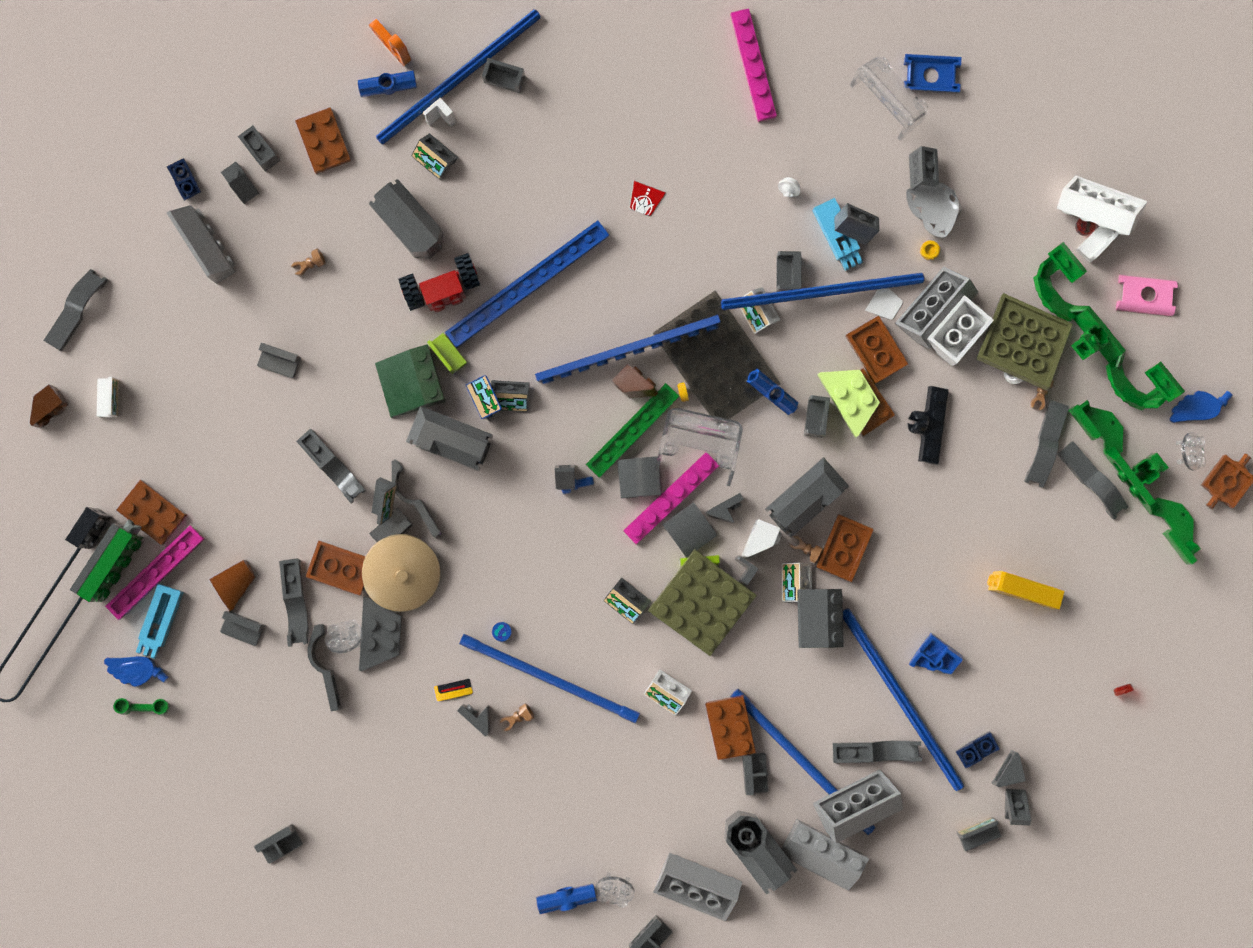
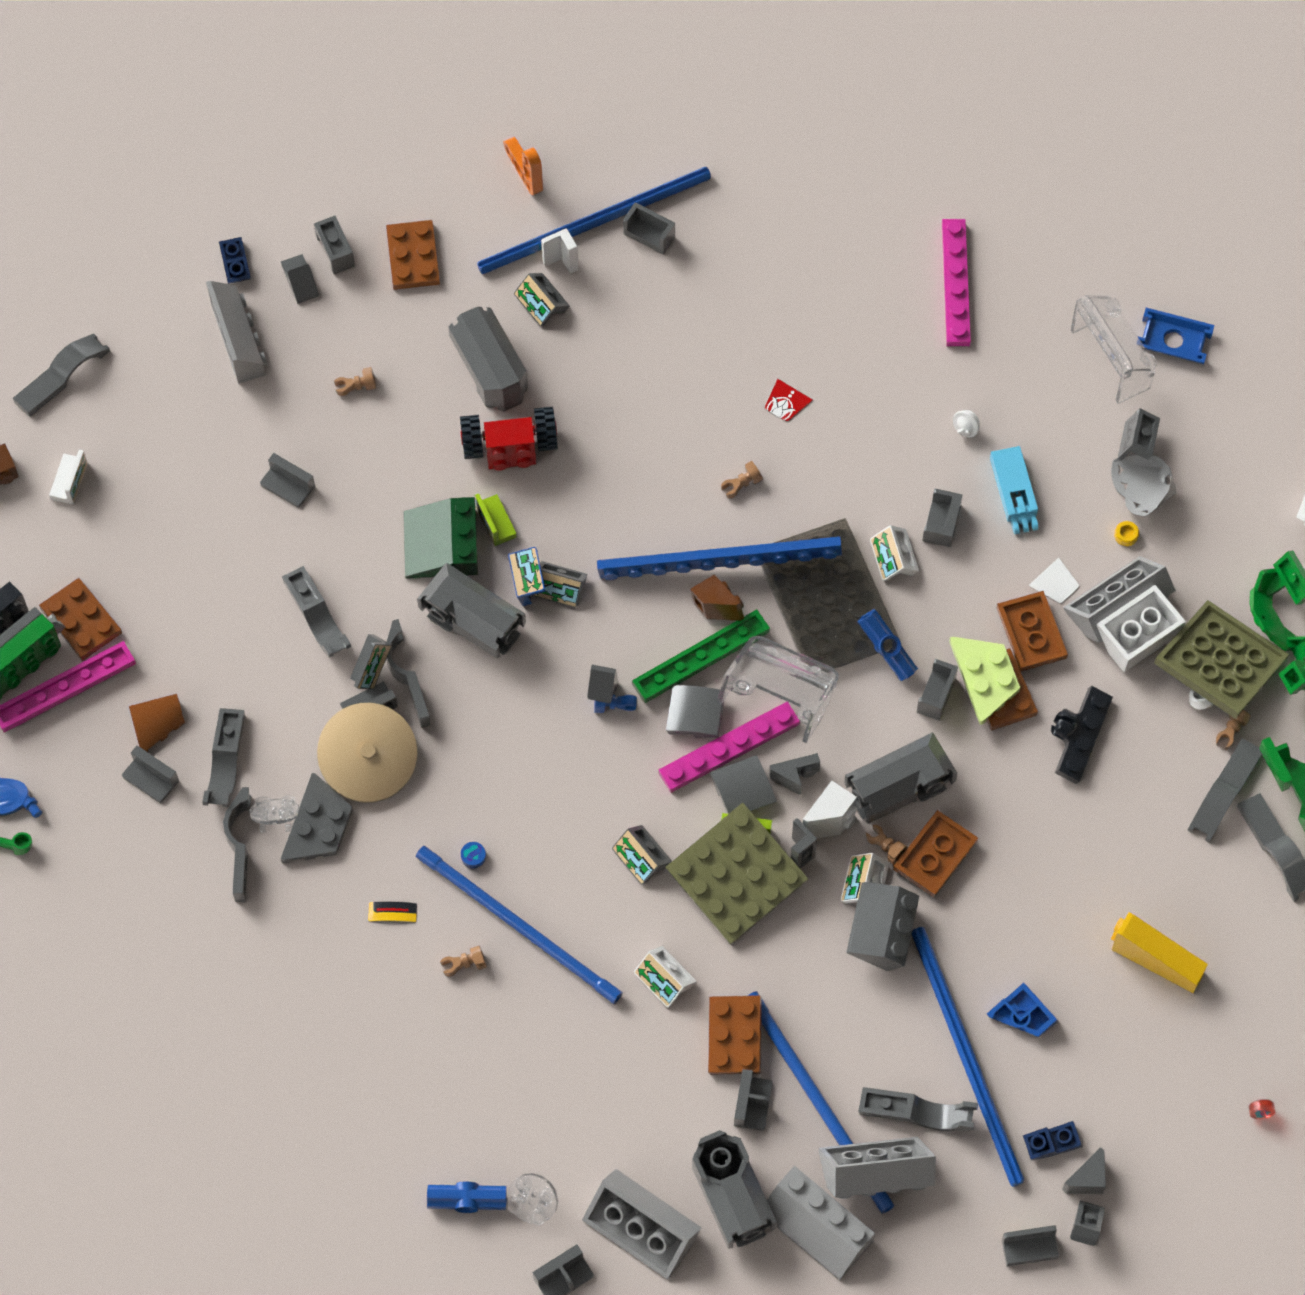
camera: 20 degrees right, 20 degrees down
(162, 612) = (57, 737): medium azure hinge -> none
(279, 844) = (118, 1042): dark grey panel -> none
(337, 568) = (288, 732): dark orange plate -> none
(374, 85) = (494, 208): blue piece -> none
(480, 722) = (415, 952): dark grey slope -> none
(527, 284) = (614, 462): blue plate -> none
(629, 275) = (752, 474): none -> medium nougat piece
(682, 392) = (775, 622): yellow tile -> none
(822, 291) = (979, 546): blue axle -> none
(856, 223) = (1039, 478): dark grey panel -> none

